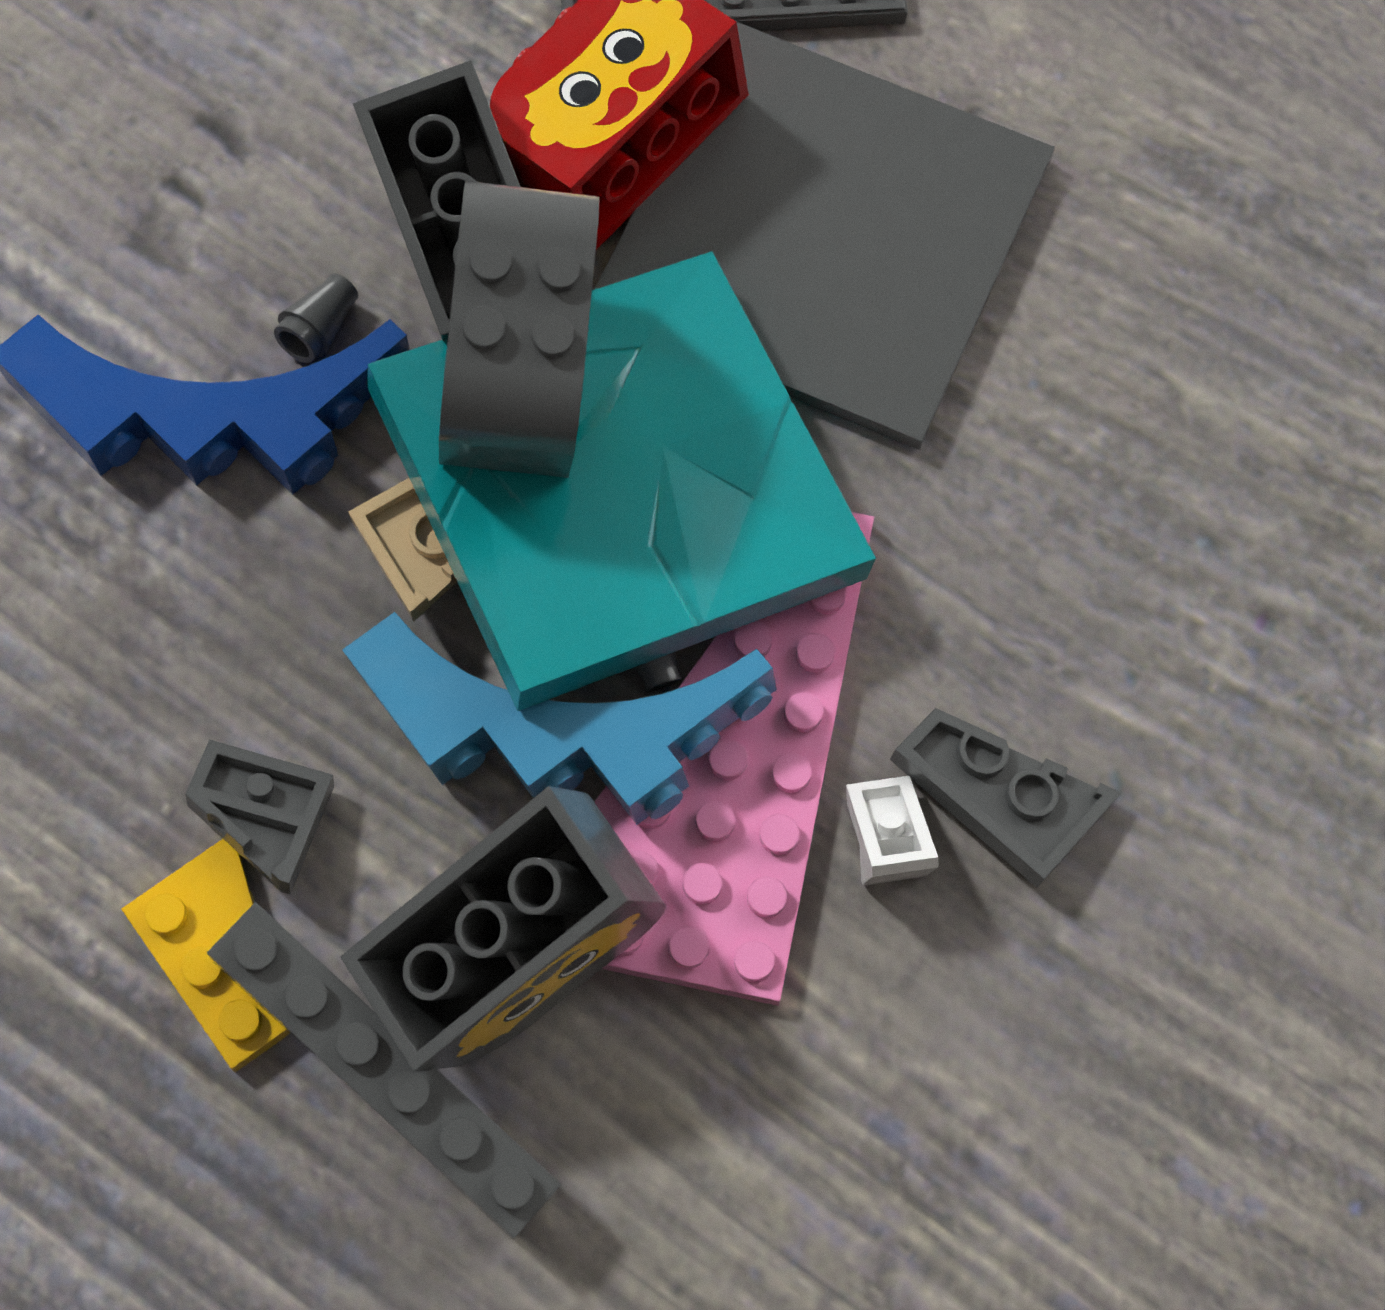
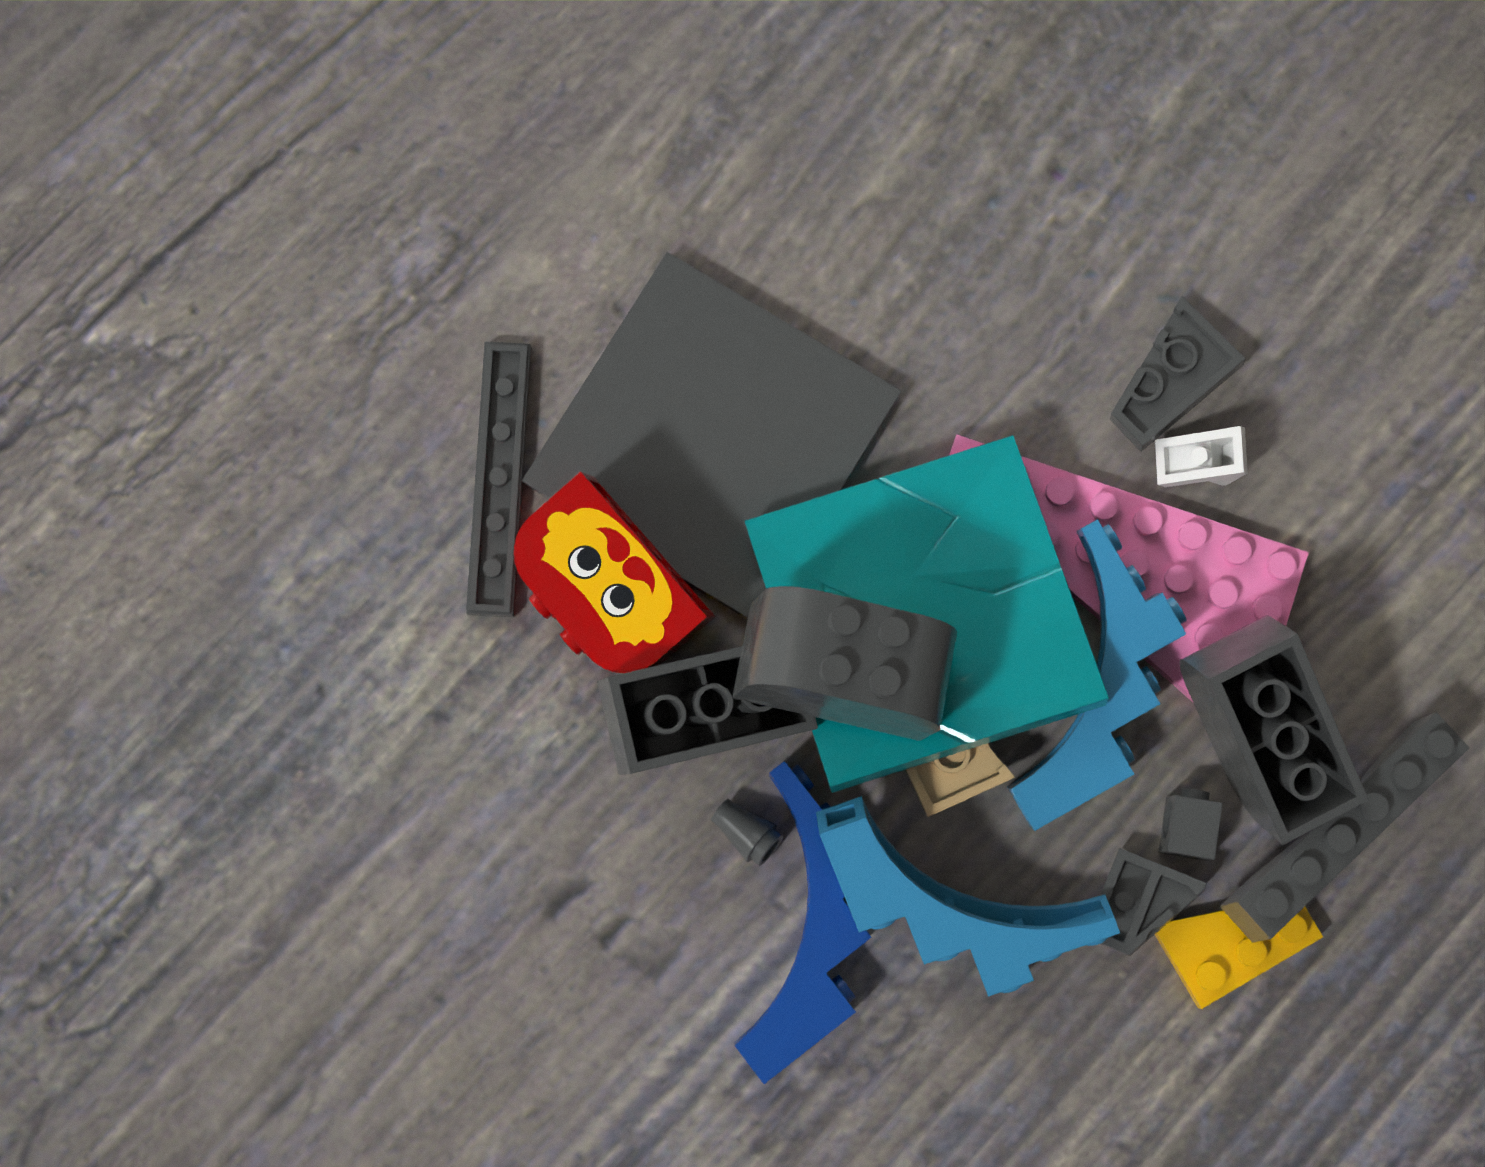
camera: 80 degrees left, 10 degrees up
(211, 534) = (944, 922): none -> dark azure arch
(371, 867) = (1190, 825): none -> dark grey brick

